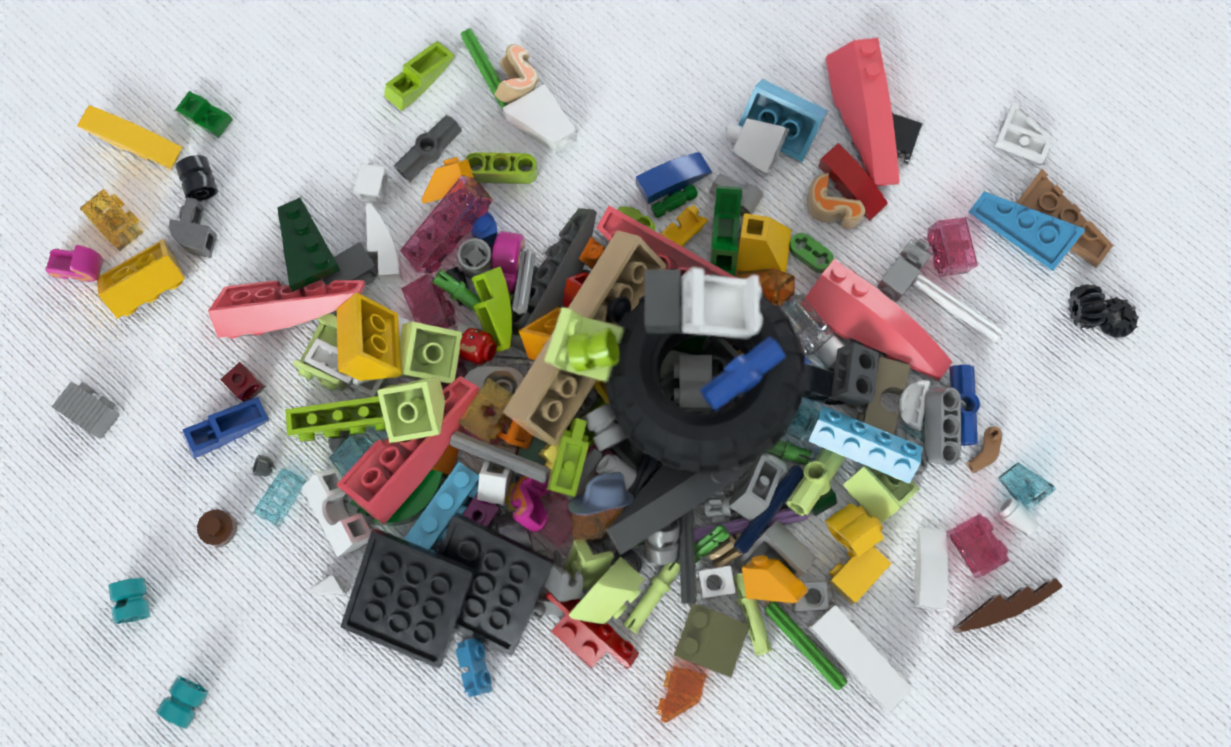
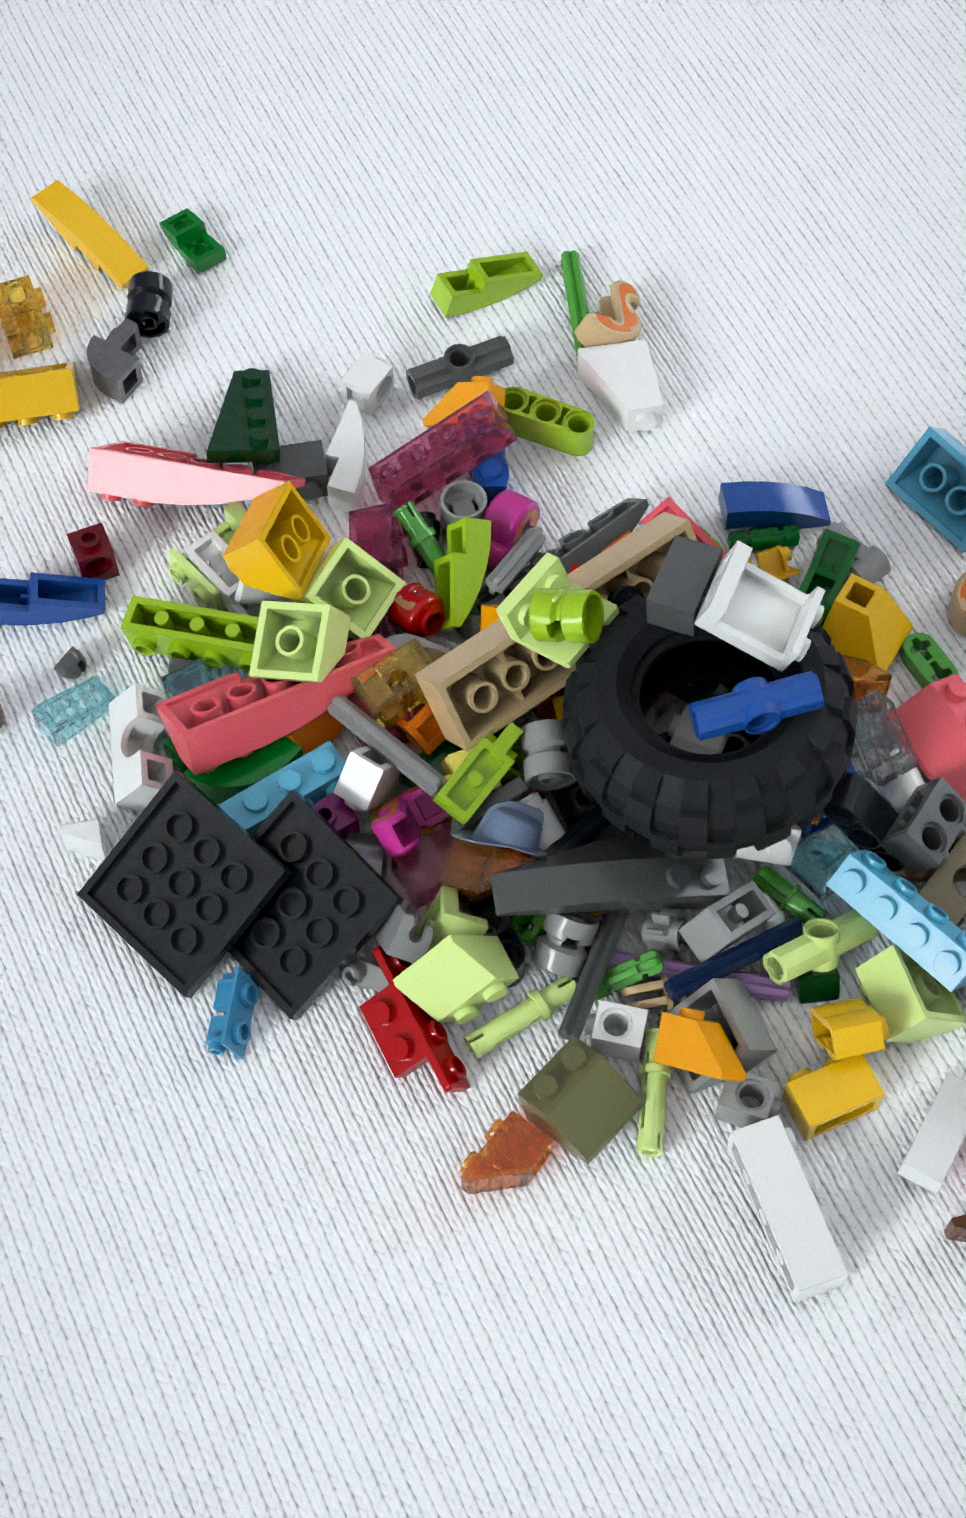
camera: 20 degrees right, 15 degrees down
(758, 142) = (910, 501): white torso -> none
(806, 645) = (715, 1167): bright green axle -> none

